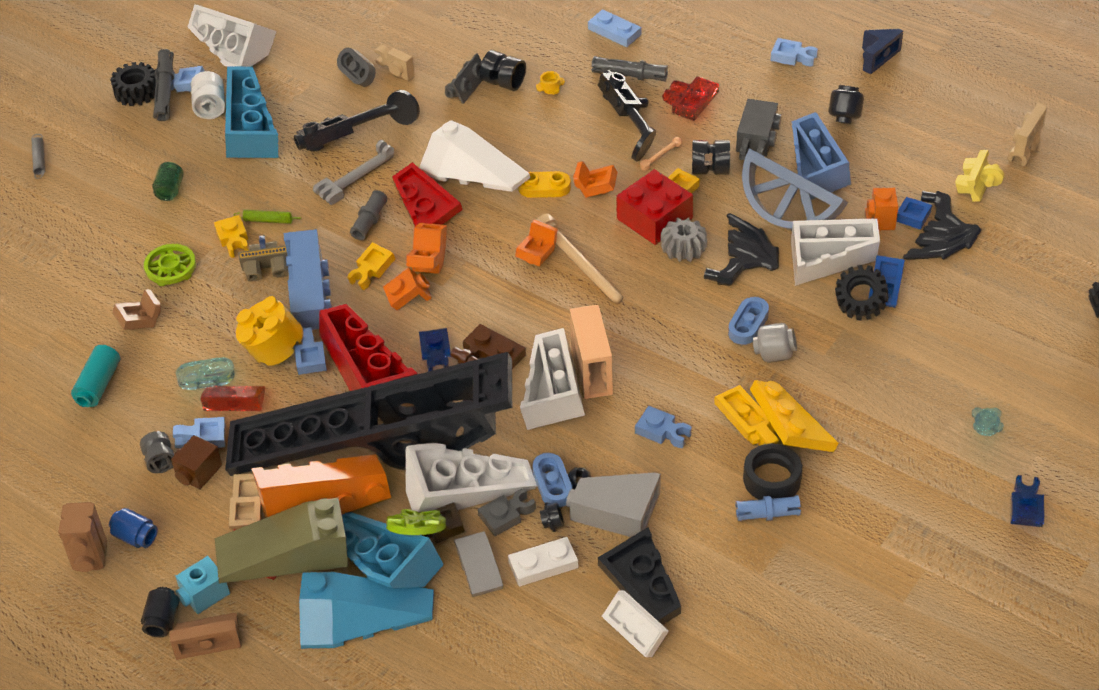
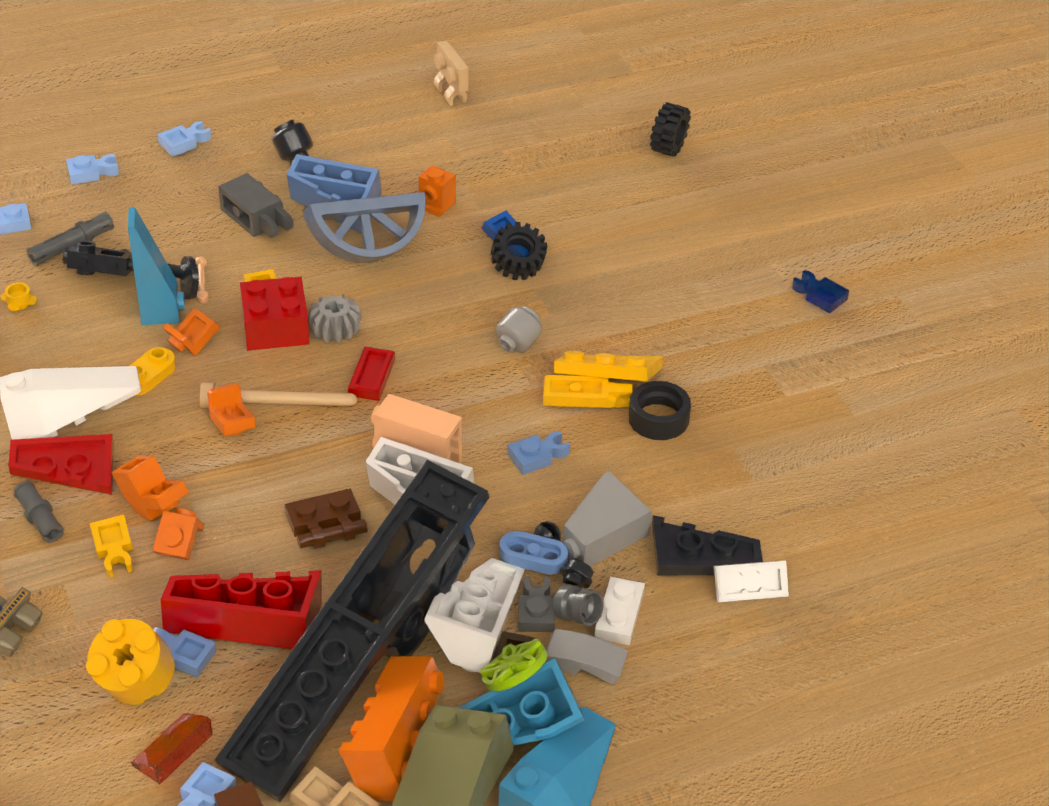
camera: 60 degrees left, 5 degrees down
(205, 373) = (115, 754): clear light blue plate -> none
(306, 277) = (79, 593): medium blue wedge -> none
(435, 347) = (276, 552): clear blue plate -> none
(511, 536) = (578, 604): none -> dark grey wheel
(607, 118) = (154, 280): none -> dark azure wedge
(654, 293) = (371, 373): none -> red tile
(691, 98) = (163, 221): clear red hinge -> none
(713, 31) = (87, 168): none -> light blue plate
(720, 157) = (256, 248): black wheel -> none
(747, 320) = (473, 333): medium blue plate -> none
(750, 249) = (386, 290): black animal -> none
(768, 508) = (693, 434): medium blue pin -> none
(832, 246) = (447, 238): white wedge -> none
(879, 47) = (242, 89): dark blue slope -> none
(913, 213) = (464, 179): blue plate -> none
(946, 234) = (493, 178): black animal -> none
(978, 176) = (460, 122): light yellow hips -> none
(987, 421) = (717, 267): clear light blue plate -> none

